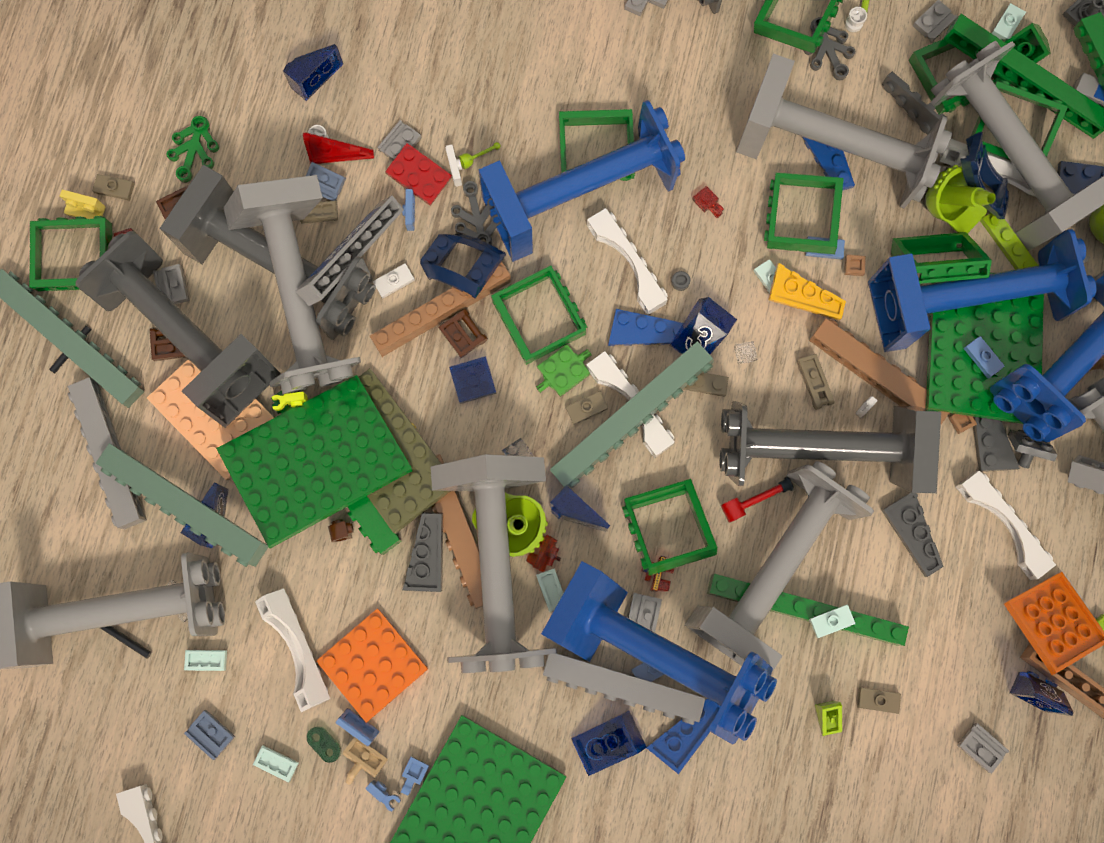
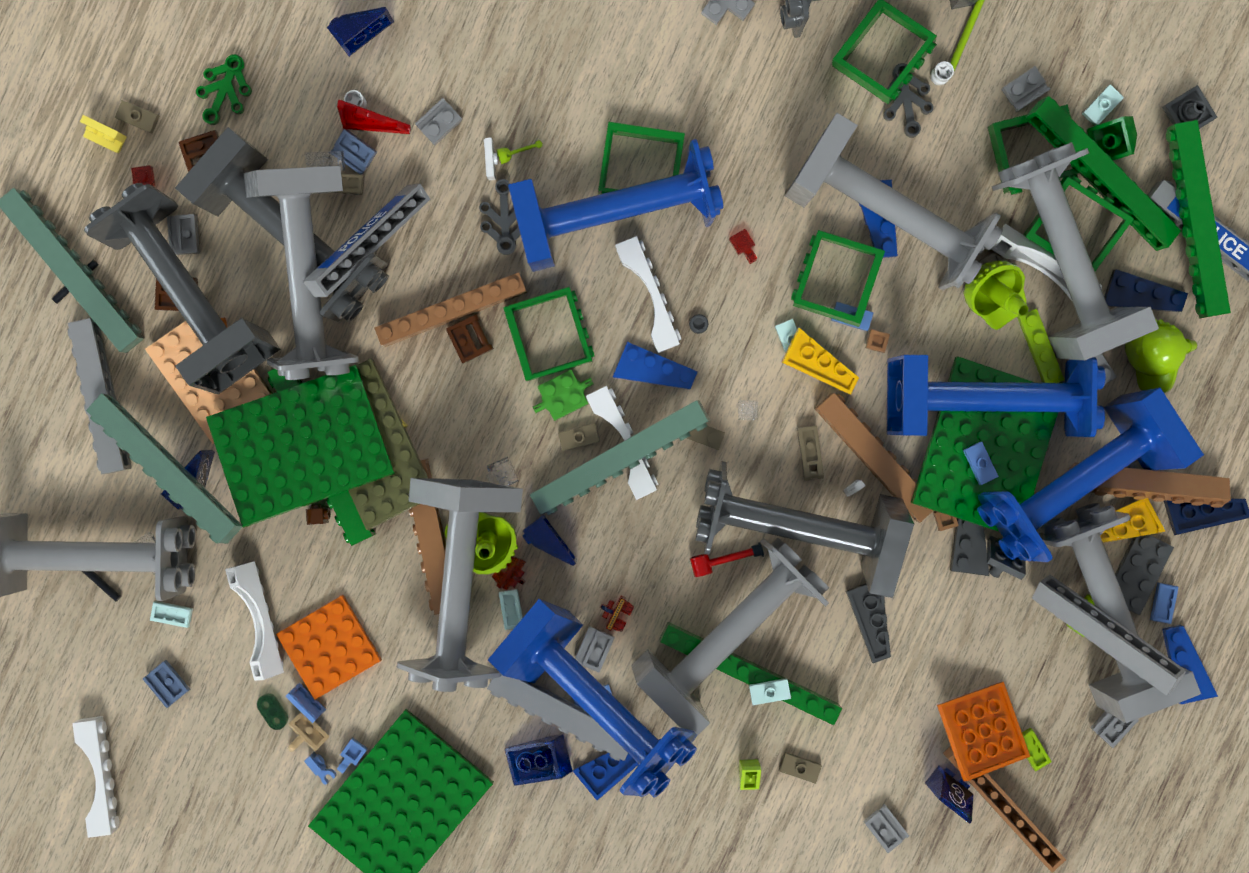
camera: 10 degrees right, 10 degrees up
(36, 228) = (50, 172): green window -> none
(275, 763) = (224, 721): light aqua plate -> none
(292, 399) = (281, 379): neon yellow plate -> none
(393, 280) = (409, 270): white plate -> none
(409, 210) = (436, 198): medium blue plate -> none
(418, 173) = (452, 161): red plate -> none
(426, 562) = (395, 561): dark grey wing -> none
(472, 380) = (470, 388): clear blue plate -> none
(479, 273) = (495, 283): dark blue wedge -> none
(684, 487) = (659, 534): green window -> none
(706, 324) = (709, 381): clear blue slope -> none
(912, 103) = (978, 180): dark grey wing -> none
(949, 269) = (963, 373): green window -> none
(978, 167) = (1029, 259): dark blue wedge -> none
(1030, 554) = (977, 661): white arch -> none

